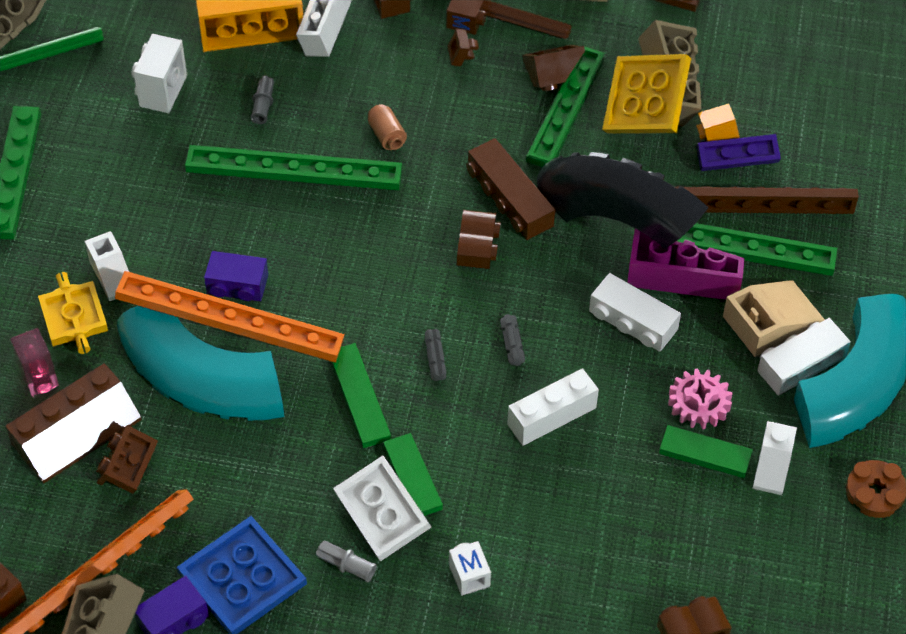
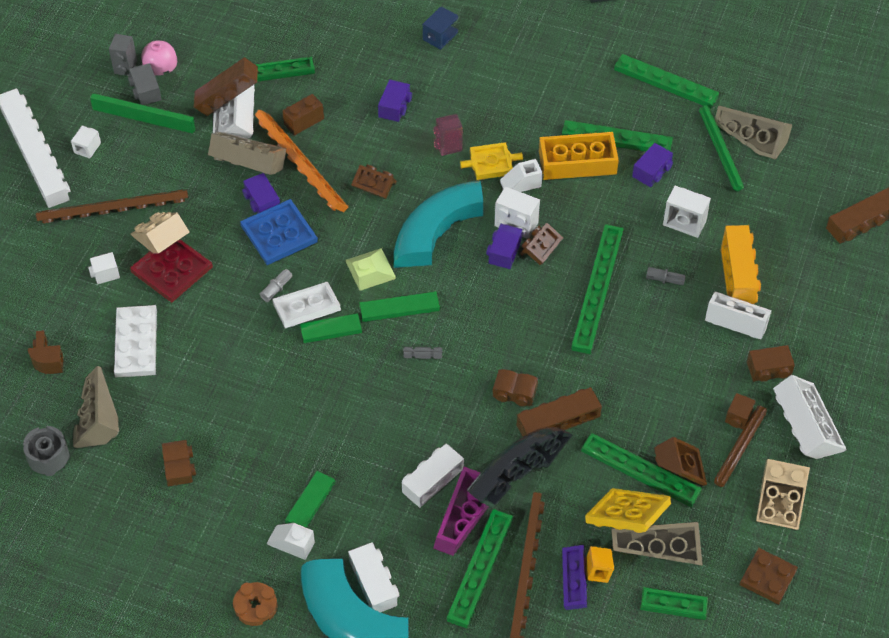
camera: 100 degrees right, 0 degrees up
(62, 202) = (578, 155): none -> light orange brick
(69, 122) = (653, 165): none -> dark purple brick
(72, 423) = (405, 157): slope -> none
(183, 255) = (517, 211): none -> white brick
(223, 235) = (542, 243): none -> bracket
(229, 316) = (461, 232): orange plate -> none
(295, 443) = (370, 269): none -> yellowish green slope
(386, 127) = (628, 346): nougat head -> none
(461, 47) = (703, 404): reddish brown tile -> none
(469, 567) = (252, 346): white brick -> none
(512, 340) = (425, 399): dark grey axle -> none
(552, 406) = (361, 410): white brick -> none
(700, 399) = (341, 498): bright pink gear -> none
(739, 65) = (674, 603): none -> green tile
(769, 314) = (413, 564): tan slope -> none

